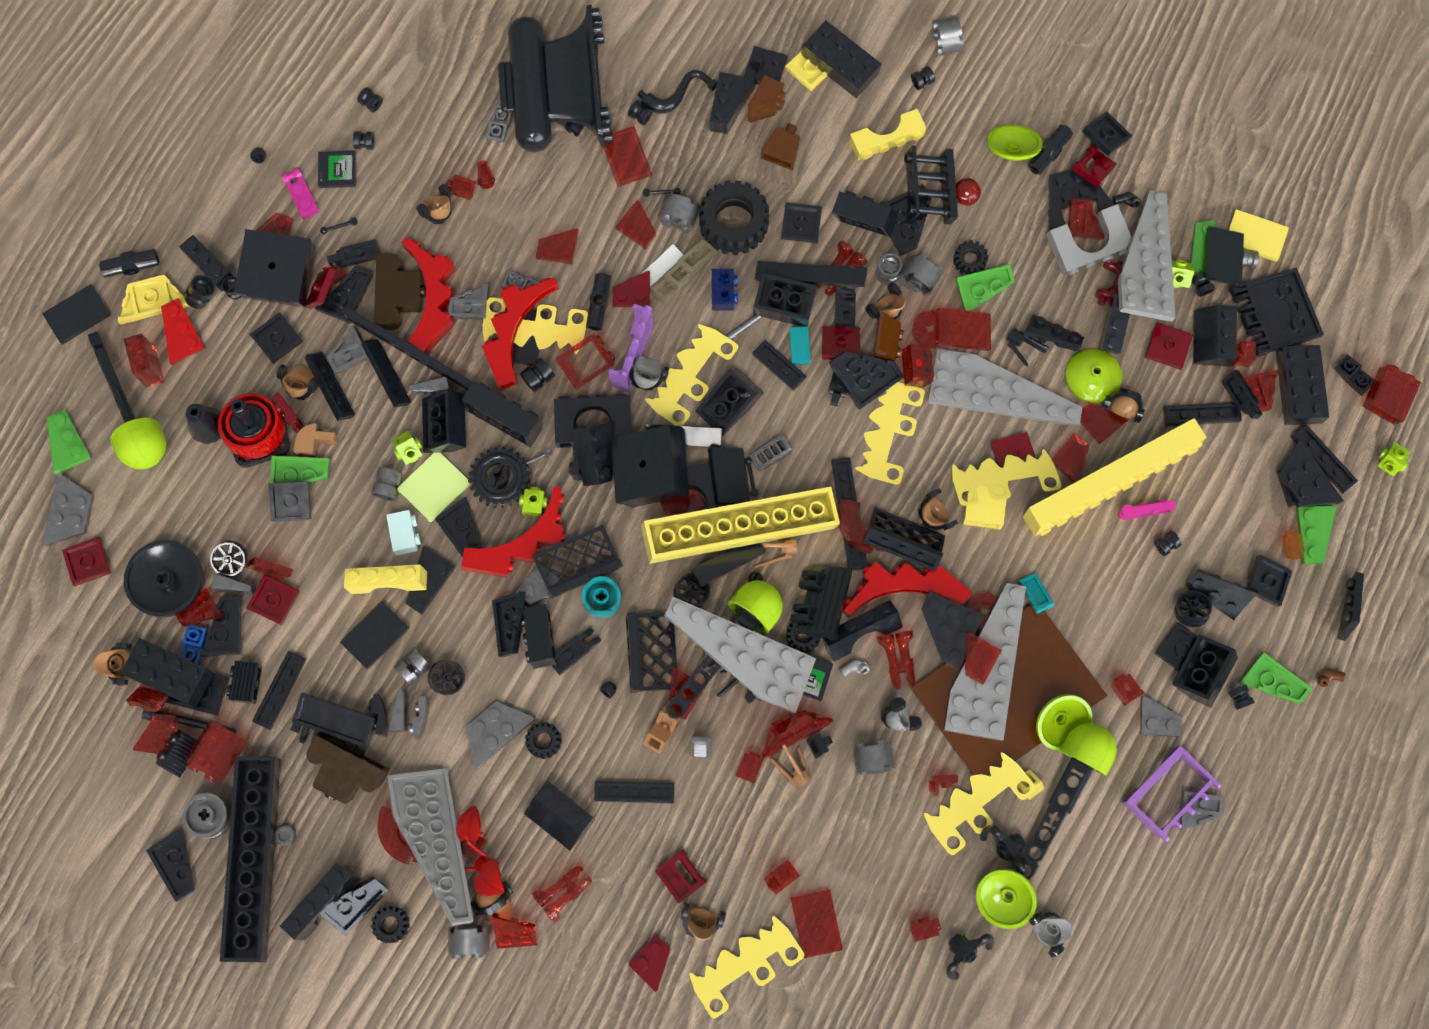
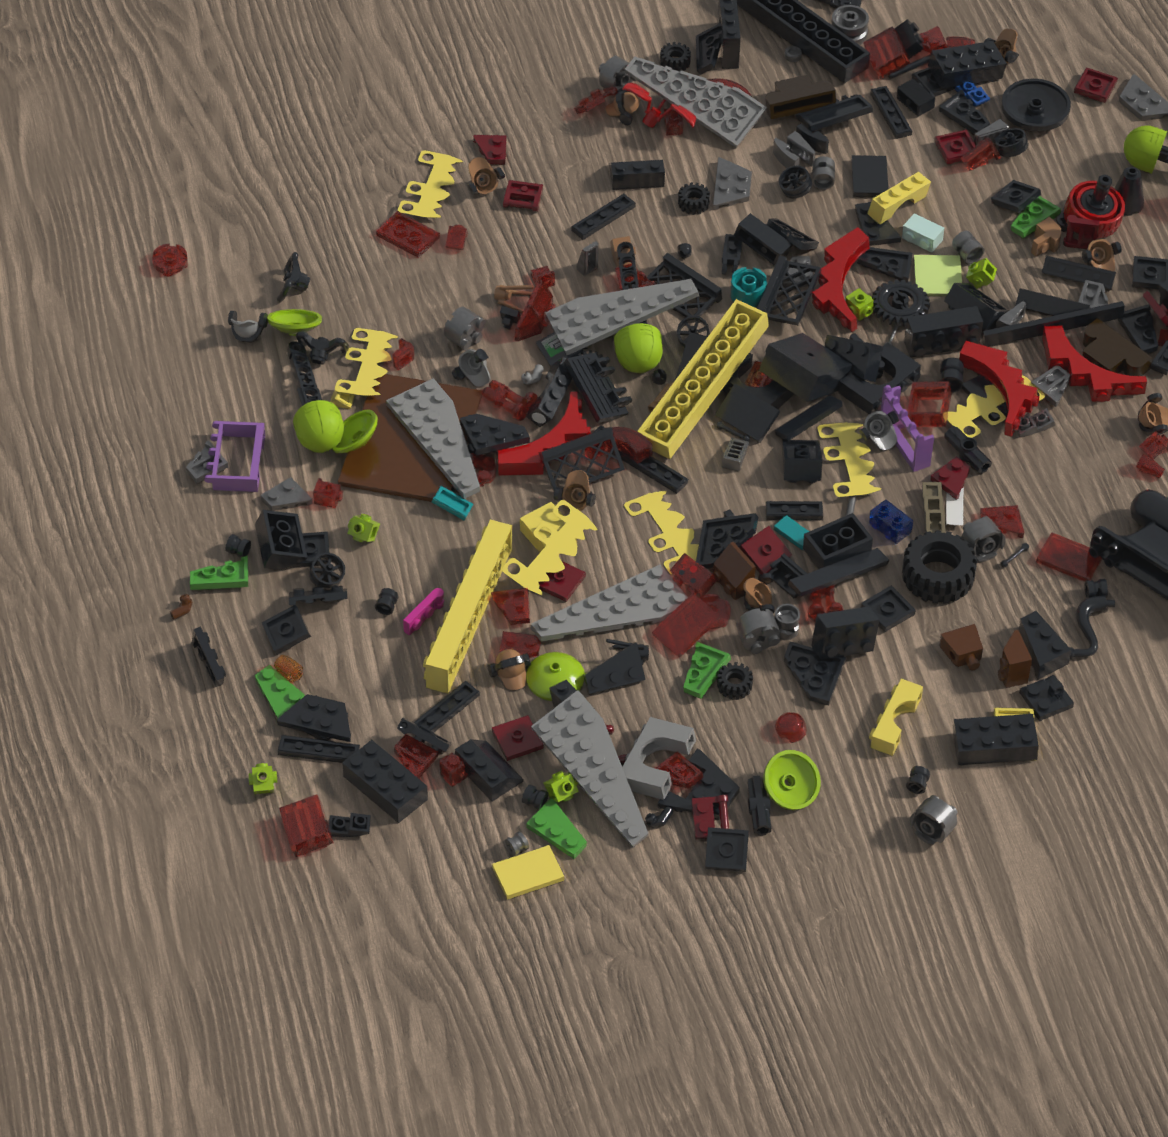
camera: 135 degrees right, 25 degrees down
(201, 610) = (992, 108): clear red wing -> none
(558, 247) = (1039, 465): clear red wing -> none
(572, 892) = (585, 144): clear red piece -> none
(925, 928) = (333, 273): clear red brick -> none
(947, 181) = (817, 719): black fence -> none
(979, 658) = (451, 422): clear red wing -> none
(1130, 626) = (363, 528): none -> lime brick
(1224, 256) = (538, 822): black tile -> none
(1279, 309) = (455, 825): black hinge -> none

